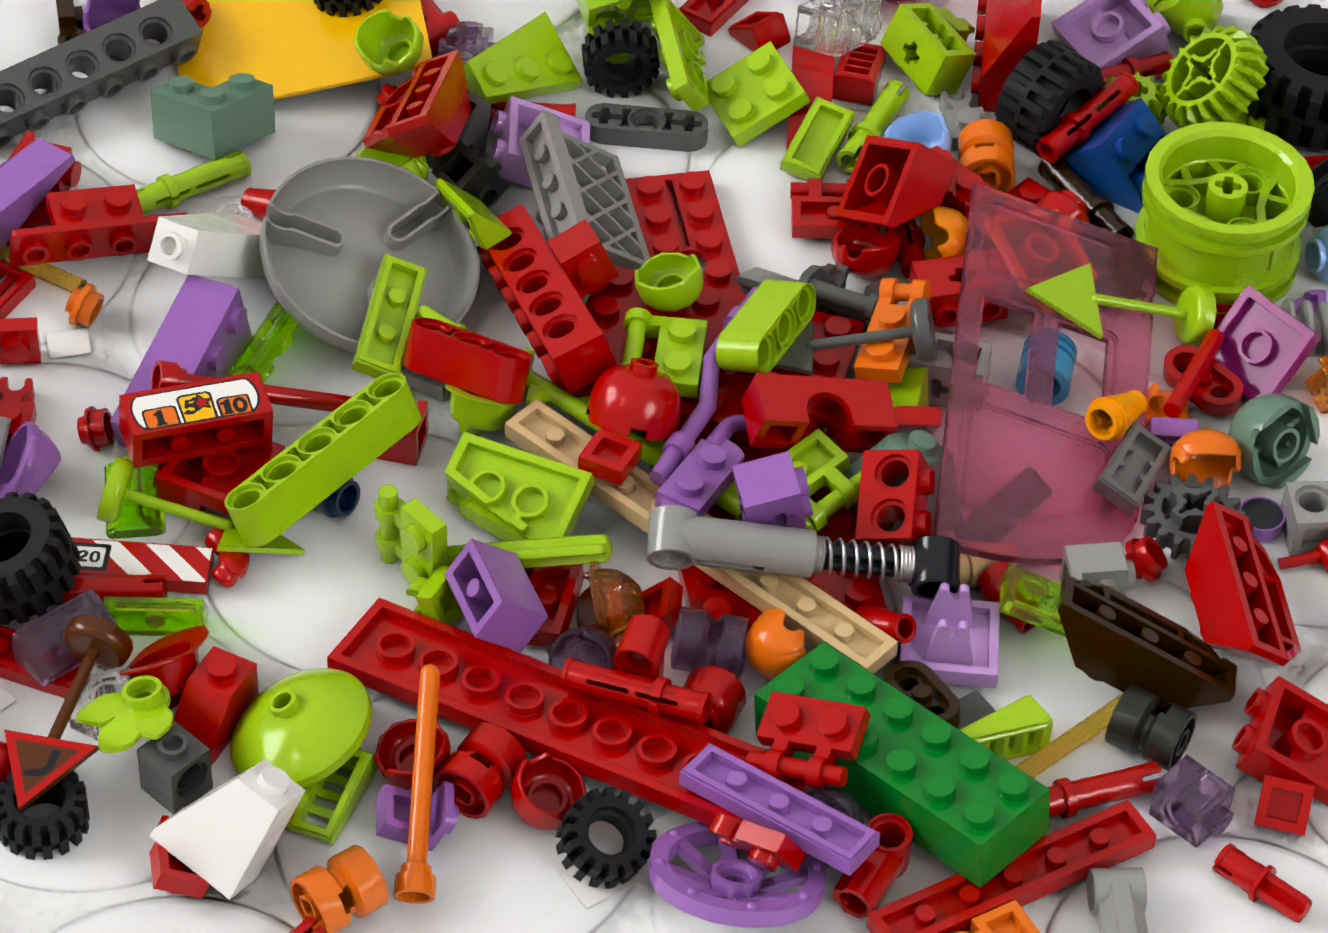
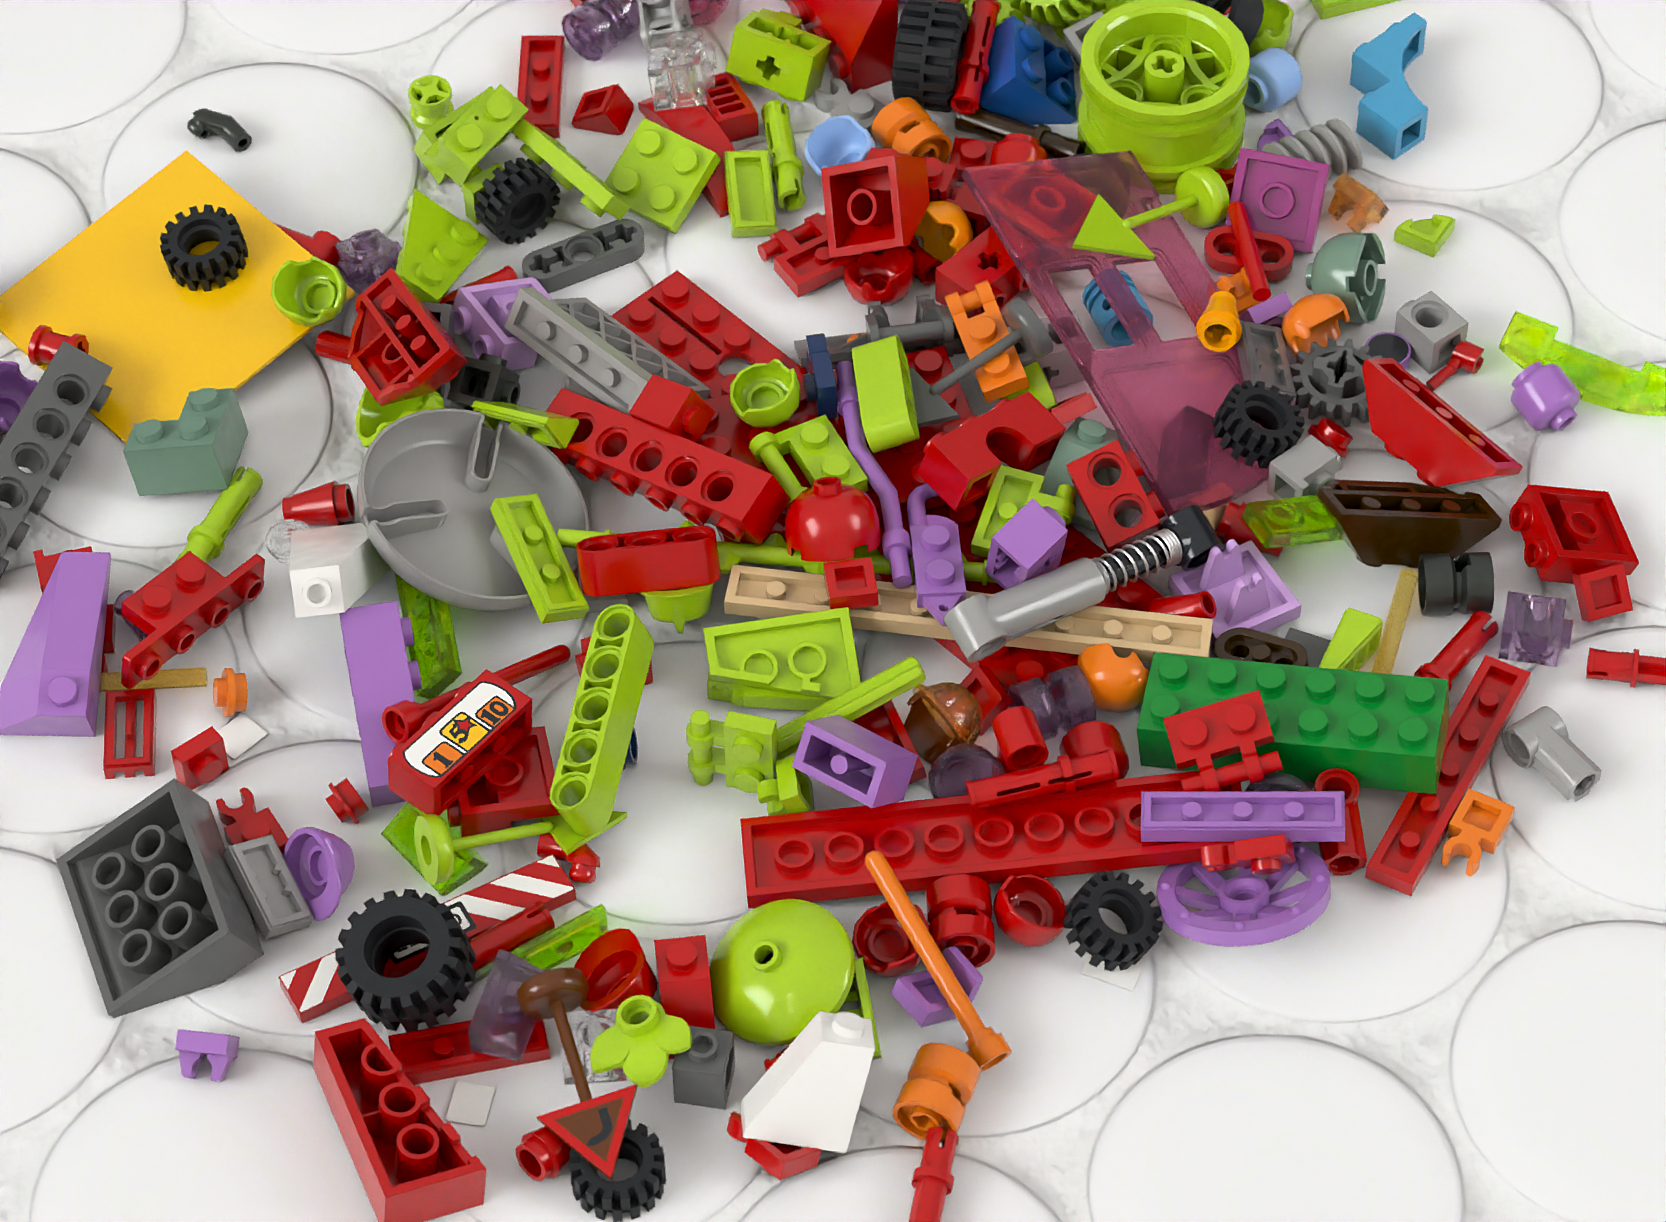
camera: 30 degrees left, 5 degrees up
(726, 290) = (820, 382): none -> dark blue plate
(1088, 492) = (1266, 407): none -> black tyre

